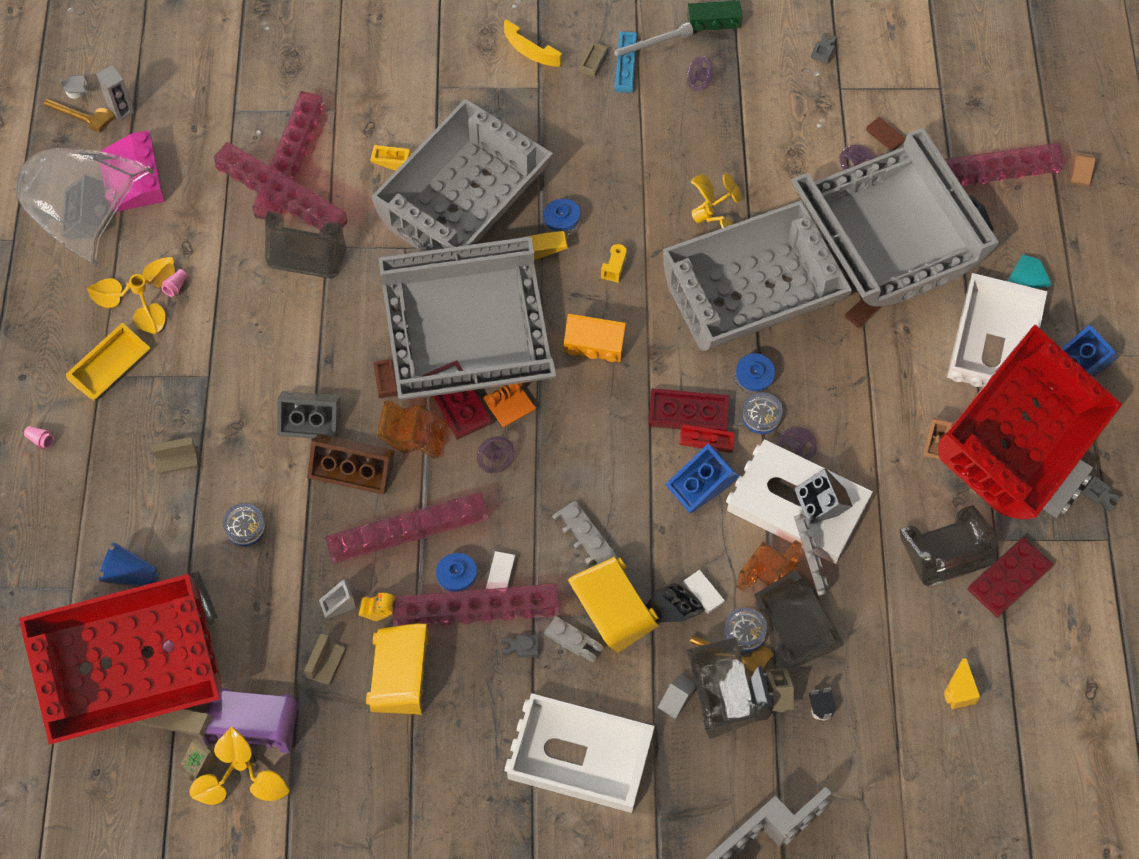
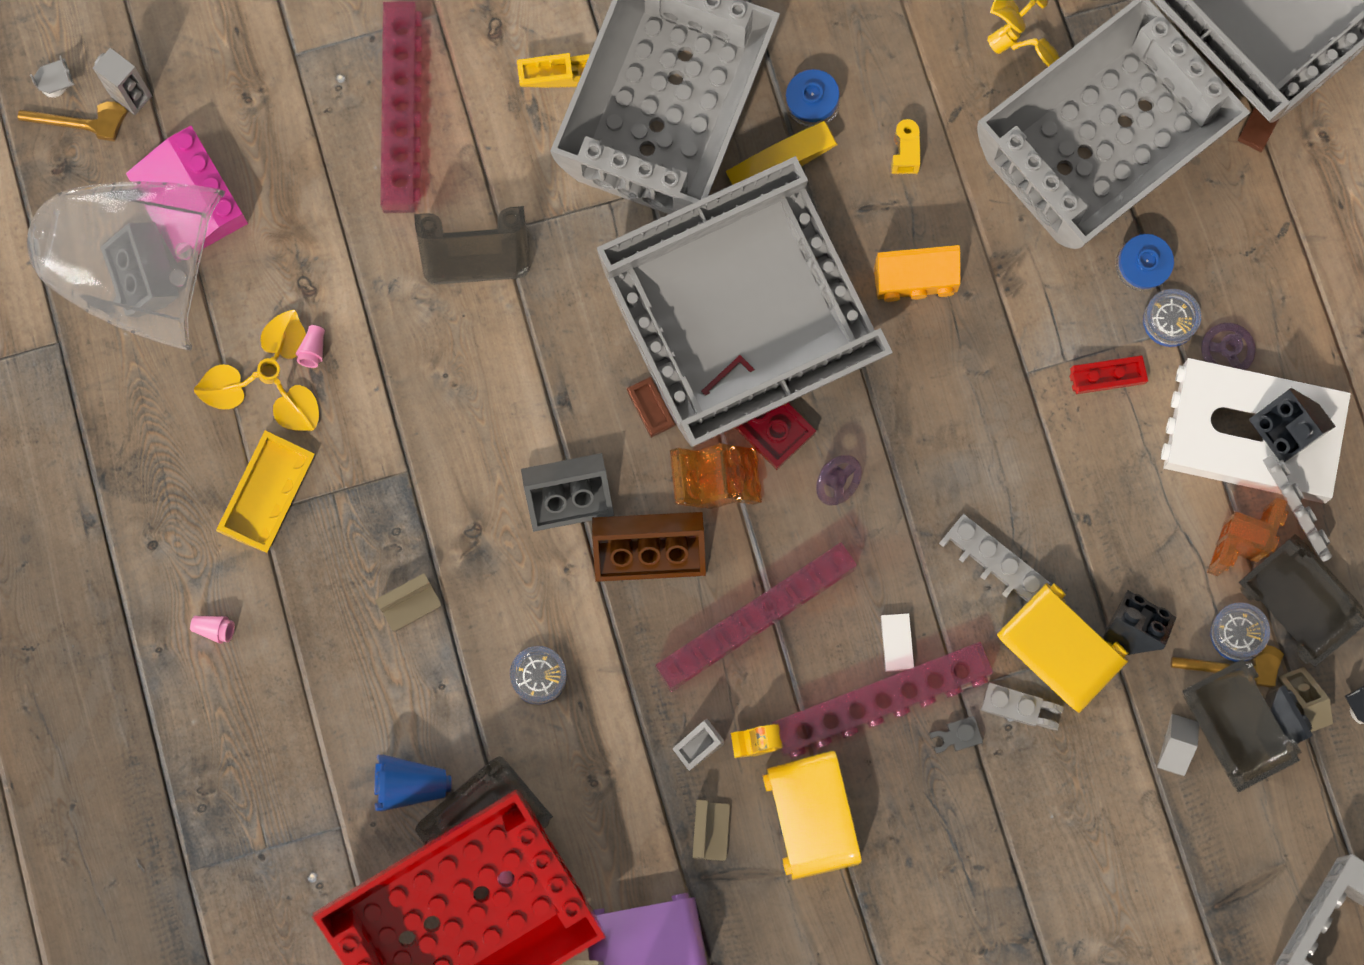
camera: 15 degrees left, 15 degrees up
(270, 182) = (325, 135): clear pink brick -> none
(456, 573) = (843, 663): blue piece -> none
(509, 403) = (832, 403): orange hinge -> none
(612, 760) = (1122, 852): white panel -> none
(697, 409) = (1072, 340): dark red plate -> none
(702, 478) = (1120, 435): blue slope -> none
(703, 592) = (1168, 593): white tile -> none

